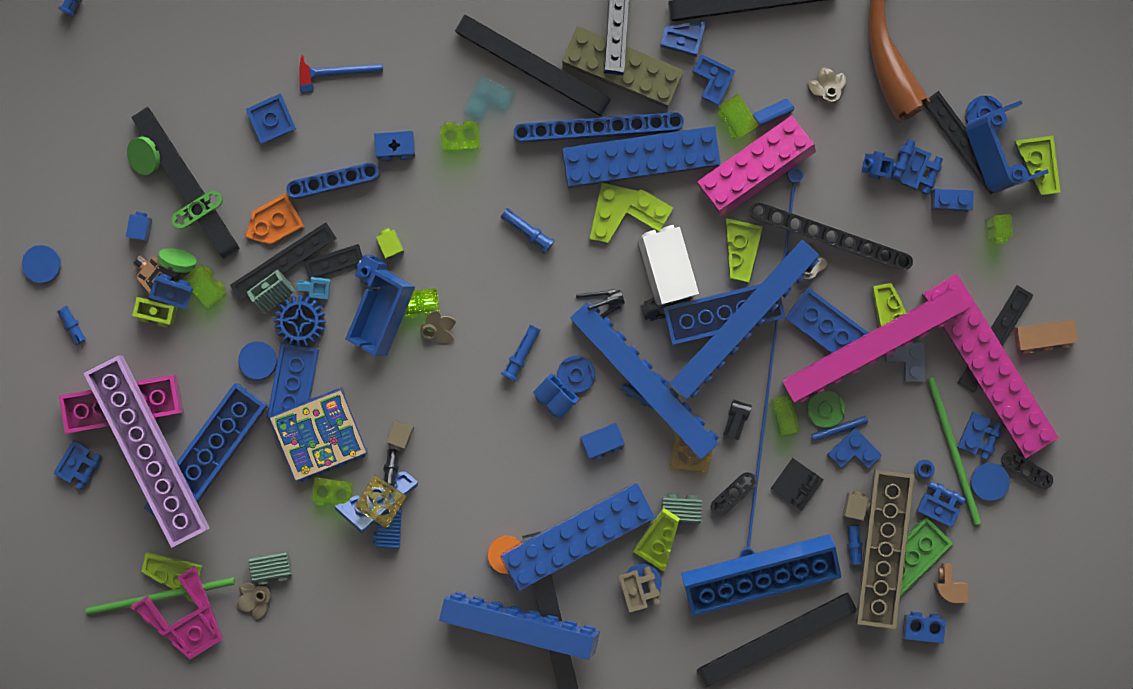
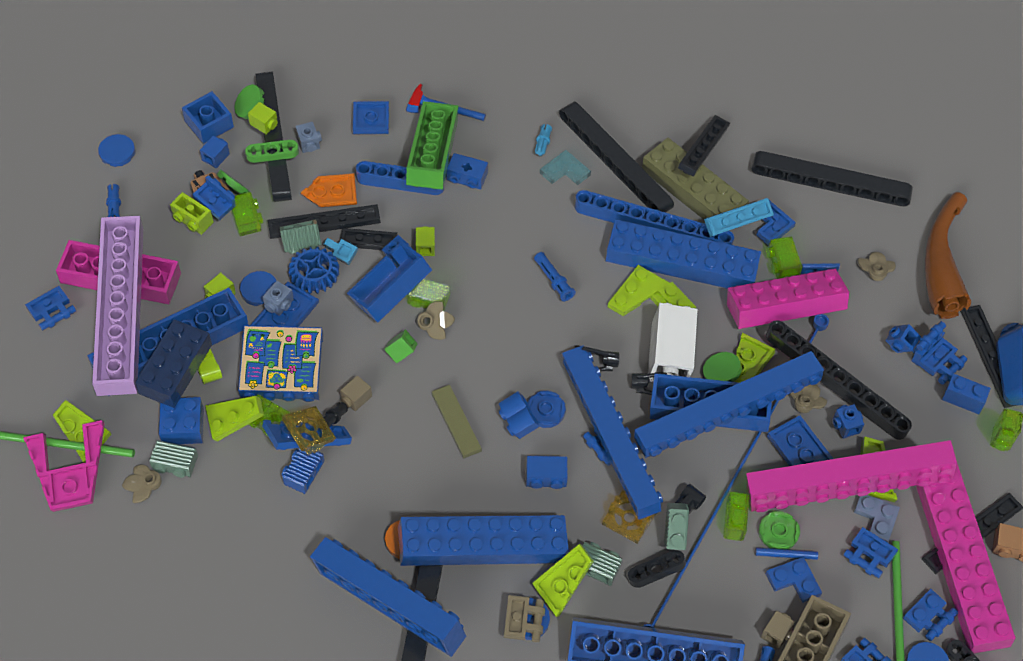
camera: 20 degrees right, 30 degrees down
(112, 192) = (207, 117): none -> blue brick
(170, 177) = (263, 118): none -> lime brick
(221, 171) = (308, 137): none -> sand blue brick
(222, 380) = (218, 284): none -> lime brick
(228, 488) = (173, 363): none -> dark blue brick
(255, 466) = (209, 369): none -> lime piece
(258, 529) = (183, 422): none -> blue brick
(284, 371) = (278, 298): none -> sand blue brick
(302, 507) = (232, 415): none -> lime wing
(351, 138) = (432, 145): none -> bright green brick
(418, 368) = (401, 346): none -> bright green panel
(452, 73) = (543, 139): none -> dark azure axle
(460, 141) = (531, 186): clear neon green brick -> none
(501, 421) = (456, 421): none -> olive tile
(516, 361) = (495, 375): blue pin -> none
(680, 95) = (738, 217): none -> dark azure tile
(683, 38) = (757, 184): blue wing -> none
(721, 268) = (722, 367): none -> bright green tile
(737, 451) = (676, 526): none -> sand green brick
(797, 484) = (725, 587): black hinge -> none
(860, 275) = (848, 421): none -> blue brick
(914, 394) = (873, 547): none -> blue plate
(929, 473) = (862, 618): blue plate -> none

